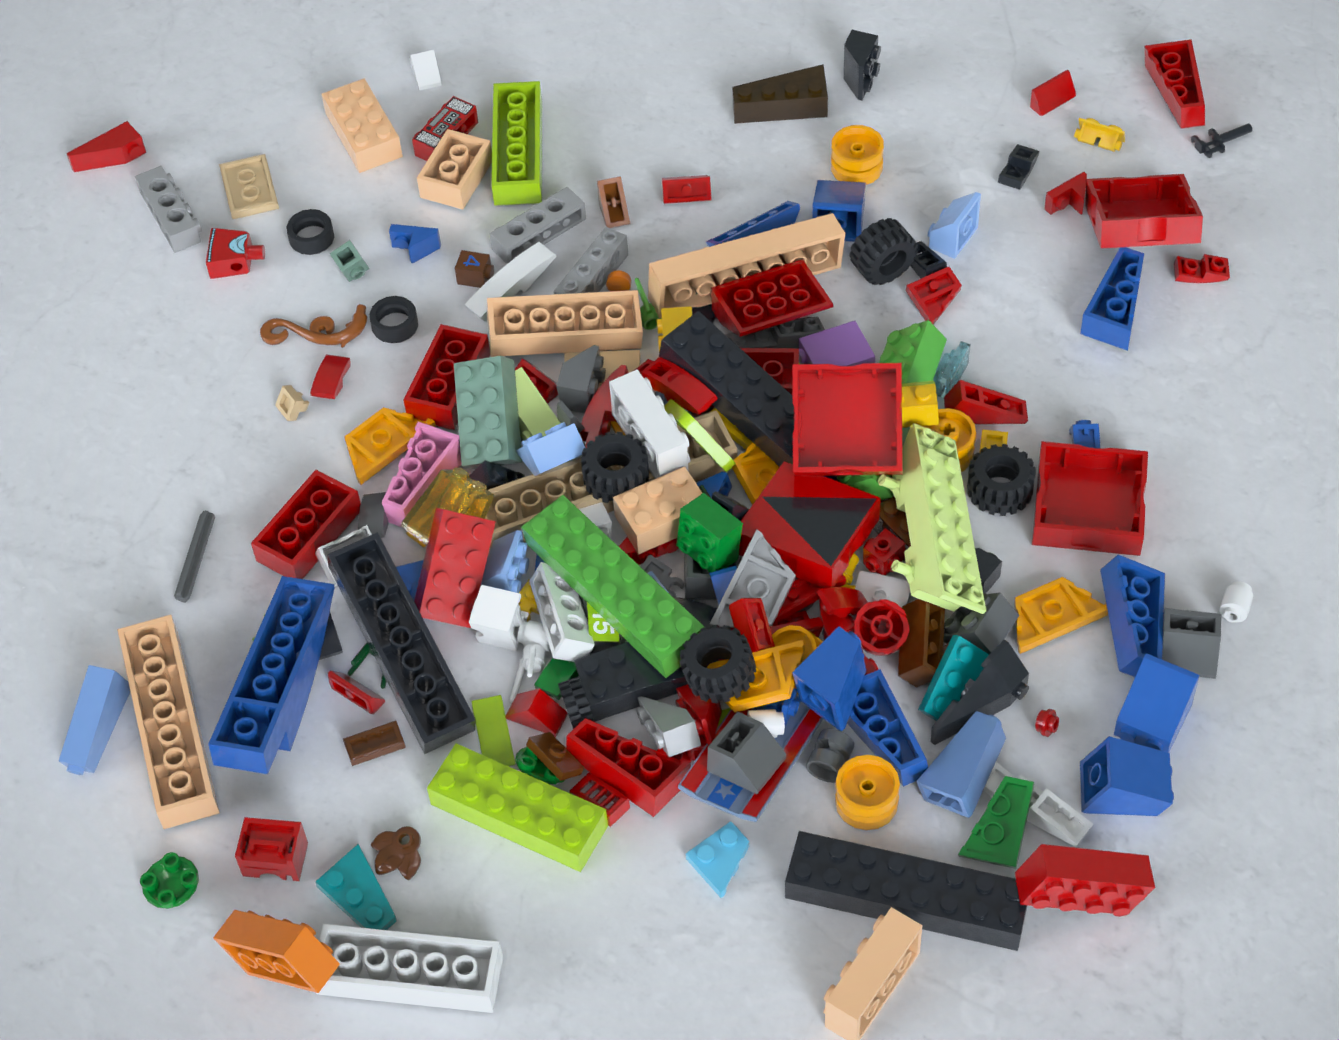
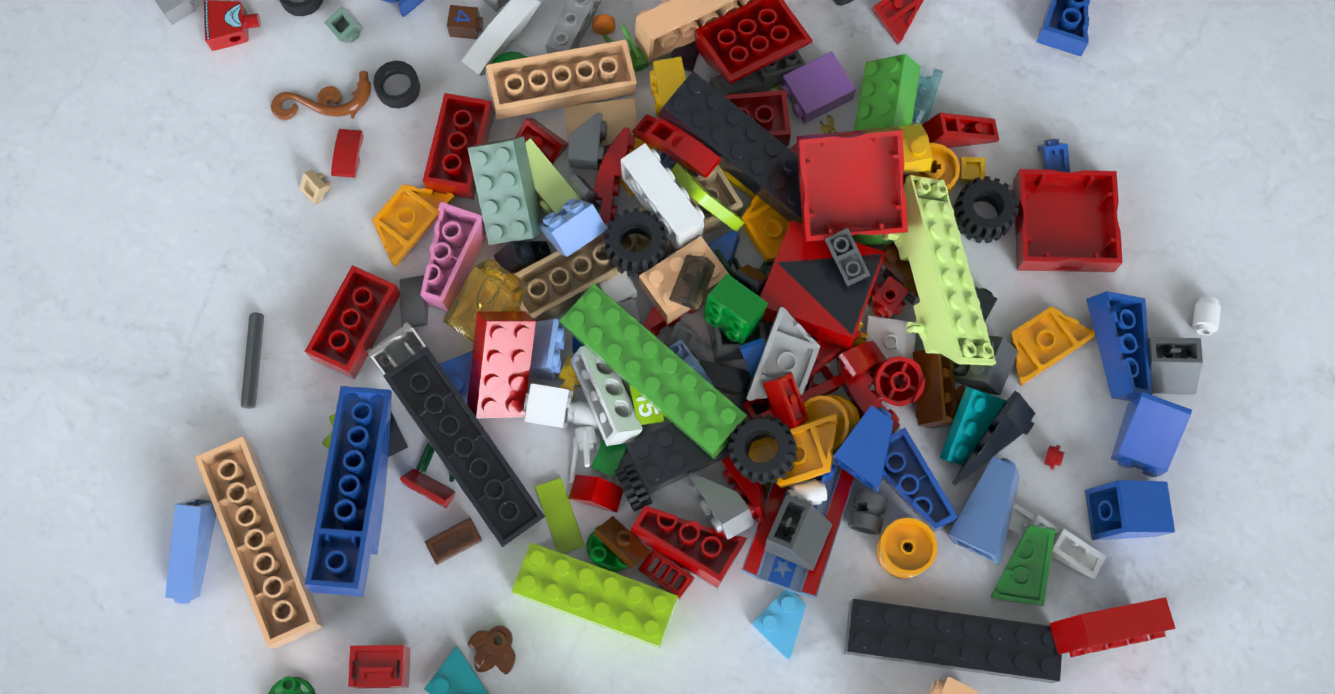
camera: 10 degrees left, 20 degrees up
(666, 504) = (692, 281): none -> clear smoke slope
(835, 491) = (847, 257): none -> dark grey slope

